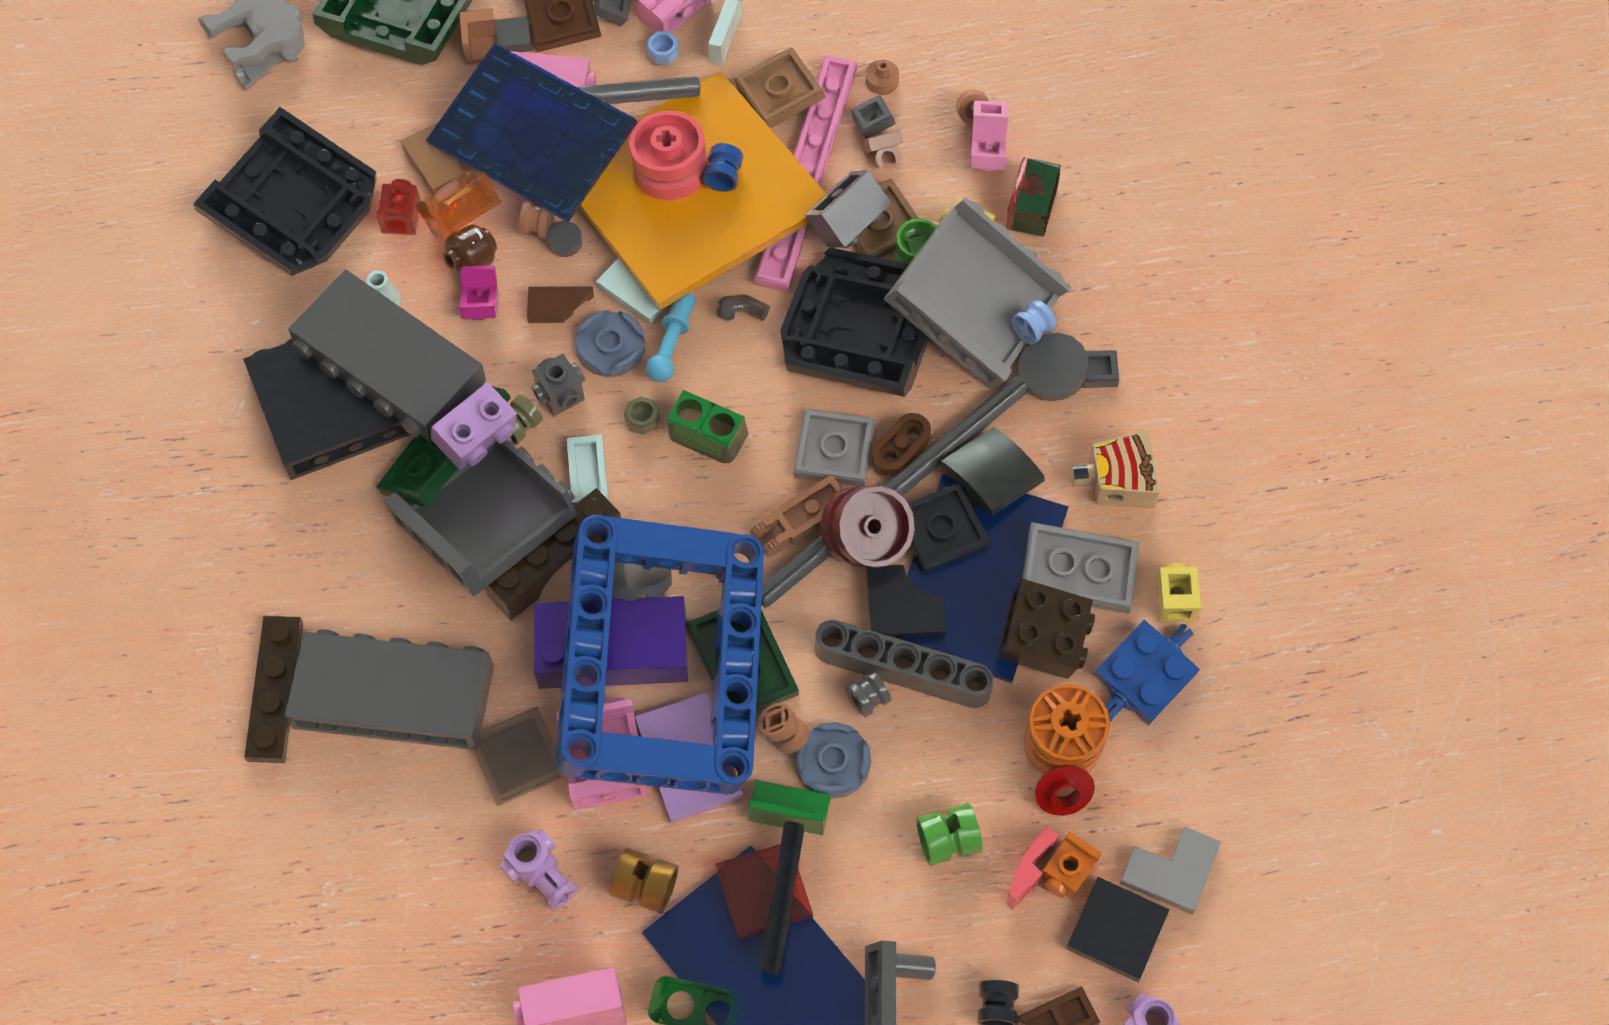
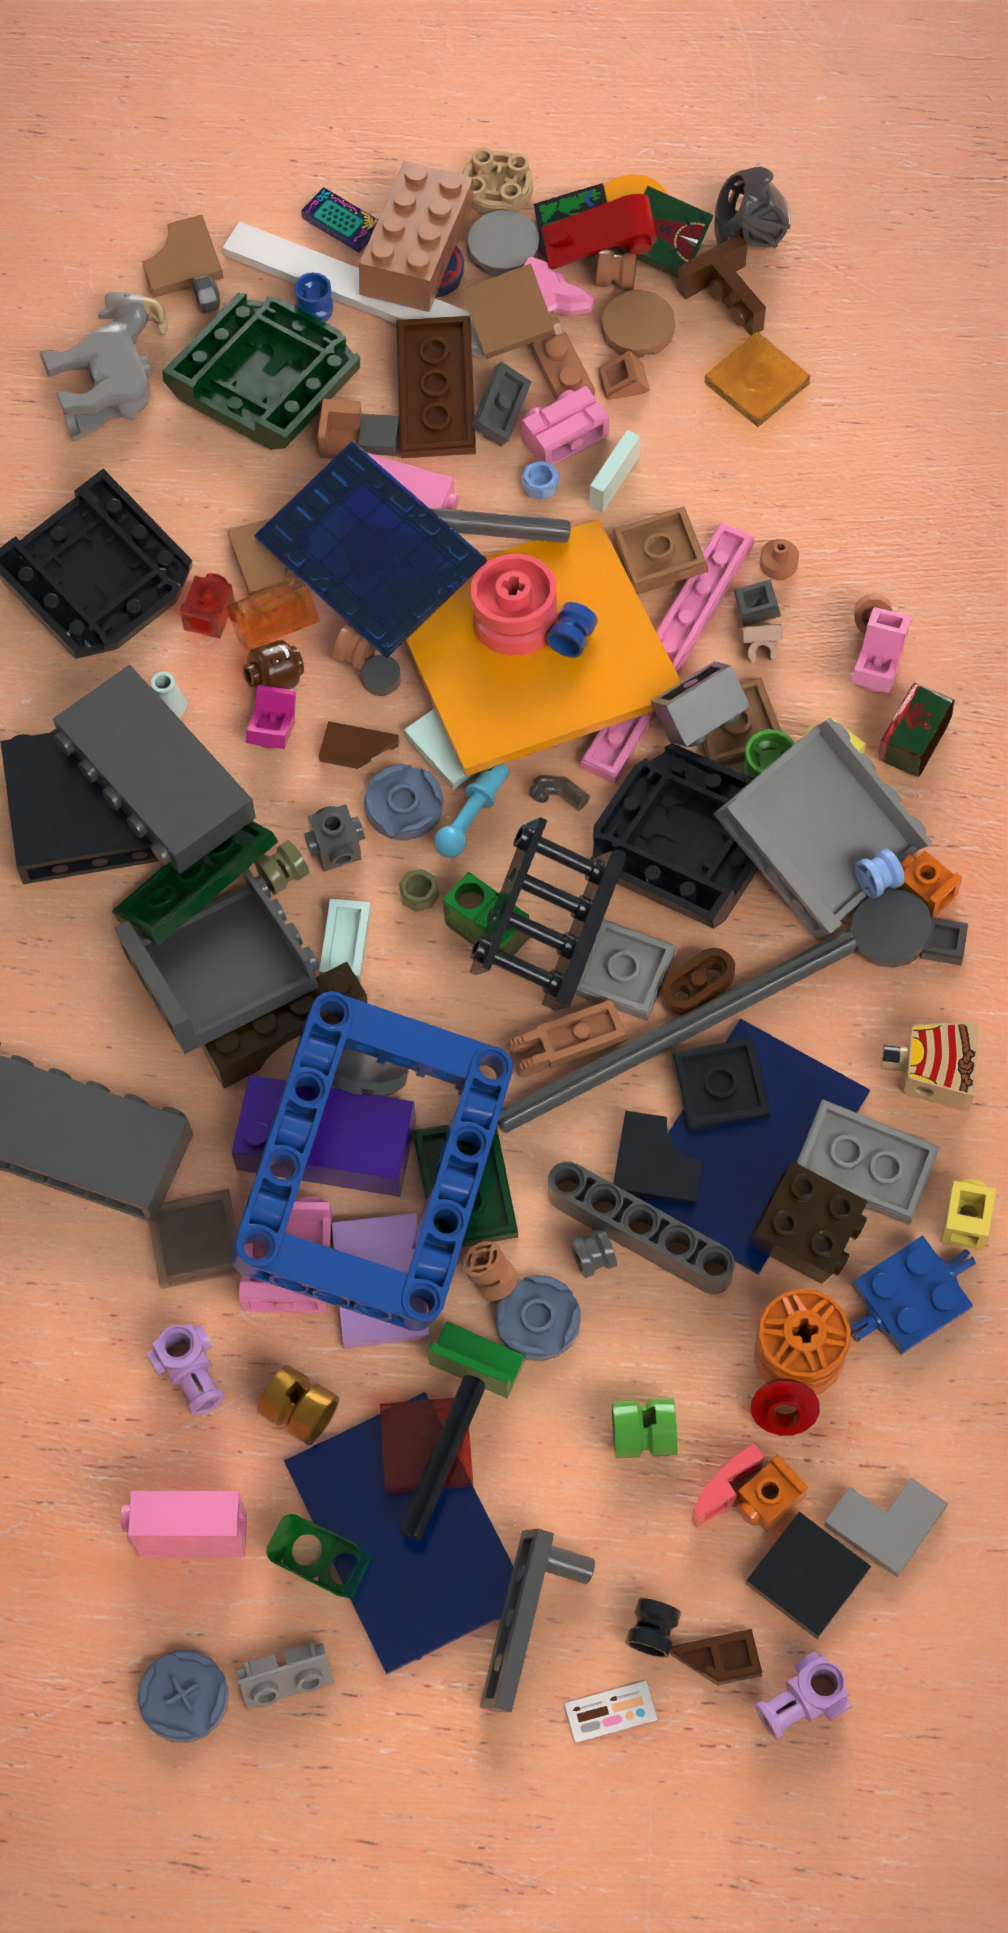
camera: 15 degrees right, 0 degrees up
(474, 427) = (228, 867): lavender brick -> none
(793, 402) = (586, 910): none -> black fence
(867, 526) = (641, 1046): wheel -> none
(992, 471) = (793, 1032): pearl dark grey slope -> none
(1077, 320) = (938, 889): none -> orange brick

